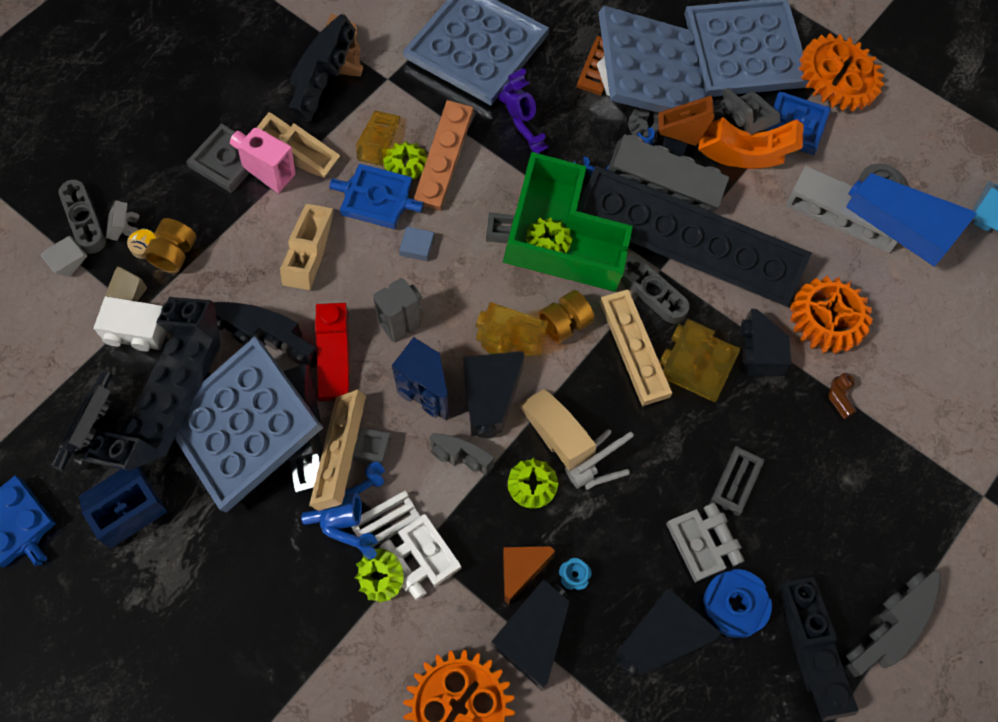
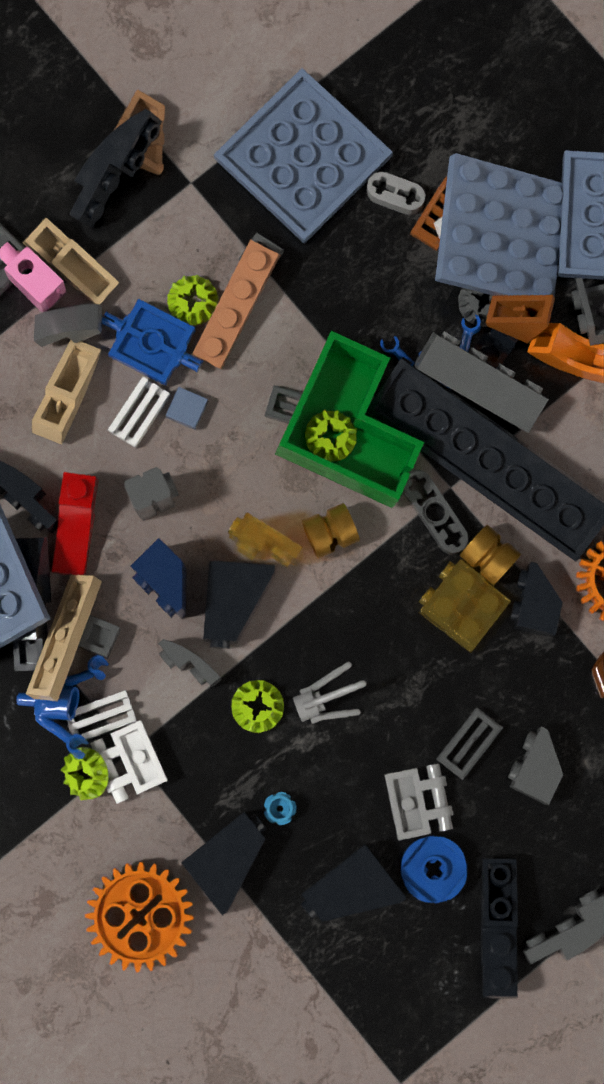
camera: 15 degrees right, 15 degrees up
(306, 188) = (73, 321): none -> dark grey slope
(365, 249) = (153, 389): none -> white tile
(376, 138) = (157, 280): clear yellow slope -> none
(521, 107) = (337, 266): dark purple piece -> none
(521, 567) = (226, 793): dark orange slope -> none
(557, 58) = (398, 186): none -> light grey beam
(558, 429) = (293, 655): tan slope -> none
(635, 347) = (398, 577): tan plate -> none
(713, 312) = (490, 554): none -> pearl gold wheel
(810, 489) = (539, 770): none -> dark grey slope

